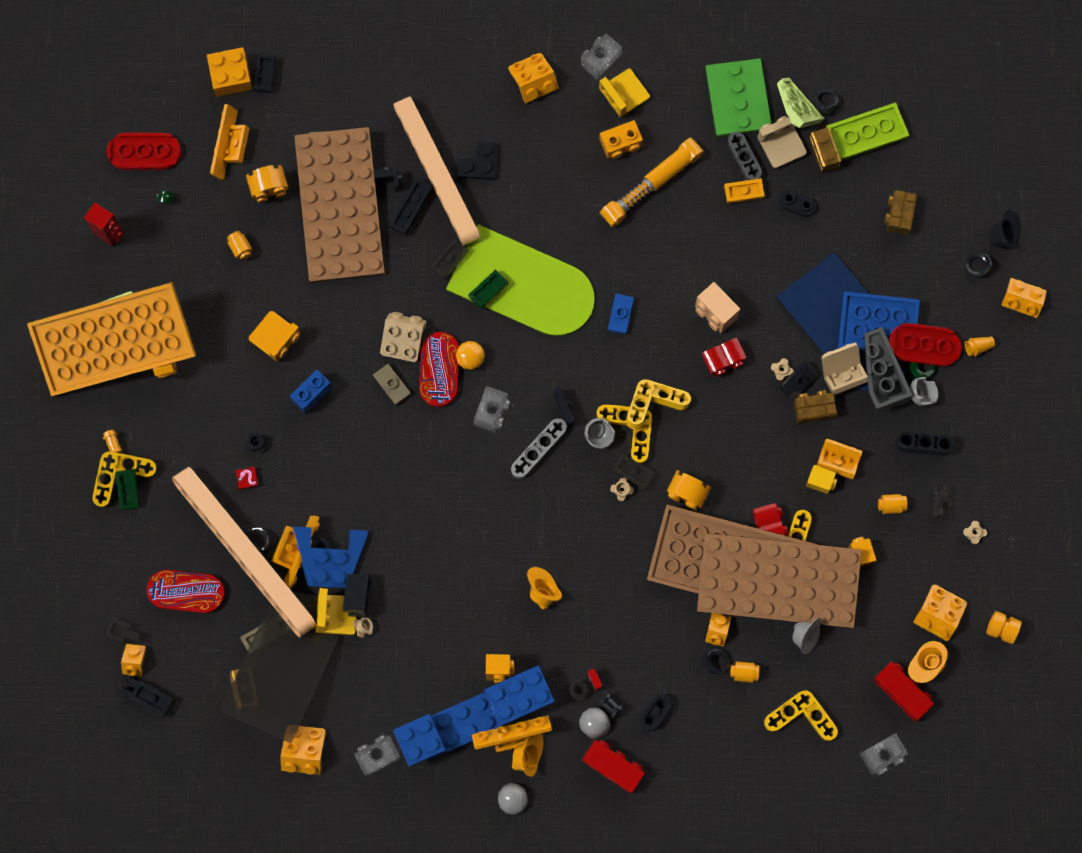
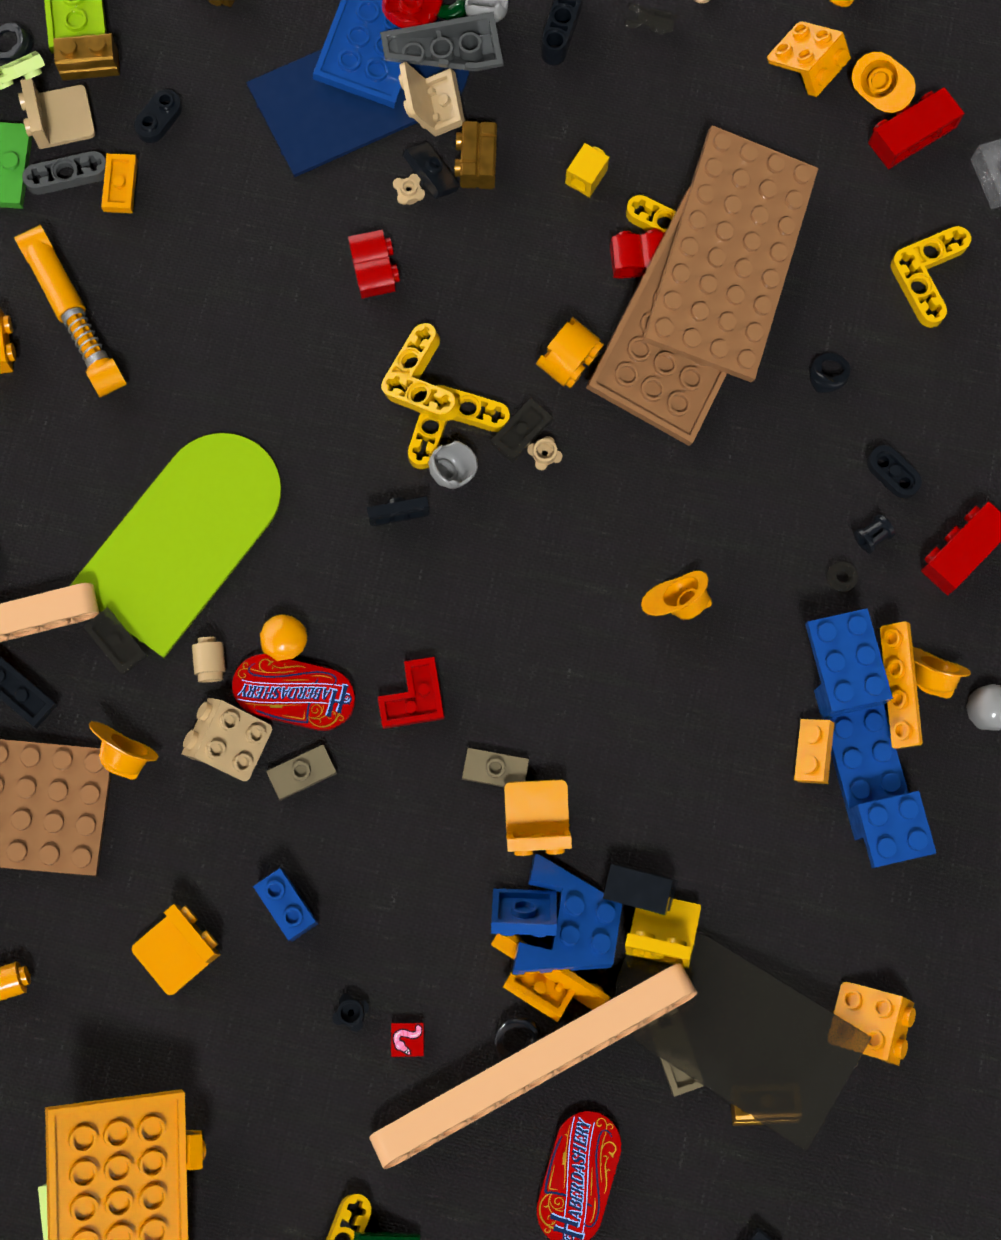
camera: 85 degrees left, 0 degrees up
(330, 528) = (524, 912): none -> blue plate
(363, 626) = (690, 889): tan plate -> none
(370, 765) = (915, 915): clear brick -> none
(383, 277) = (121, 754): none -> light orange piece
(388, 527) = (537, 817): none -> light orange bracket
(415, 498) = (493, 768): none -> dark tan plate
(447, 445) = (420, 703): none -> red plate
(448, 315) = (208, 660): none -> tan brick
(462, 688) = (814, 751): none -> light orange plate
(488, 289) = (181, 588): dark green plate -> none
(490, 398) = (387, 637): clear brick -> none
(499, 667) = (797, 685): light orange brick -> none
(537, 447) = (458, 561): light grey beam -> none
(594, 679) = (832, 549): red tile -> none
(594, 723) = (895, 563): light grey hair -> none
(620, 314) = (268, 400): blue plate -> none
(717, 308) = (296, 252): light nougat brick -> none
(718, 629) = (784, 357): light orange bracket -> none
(744, 672) = (854, 333): light orange brick -> none
(807, 635) = (814, 234): light grey piece -> none
(839, 458) = (561, 138): light orange bracket -> none
(867, 552) = (697, 133): light orange brick -> none
(892, 504) = (642, 82): light orange brick -> none

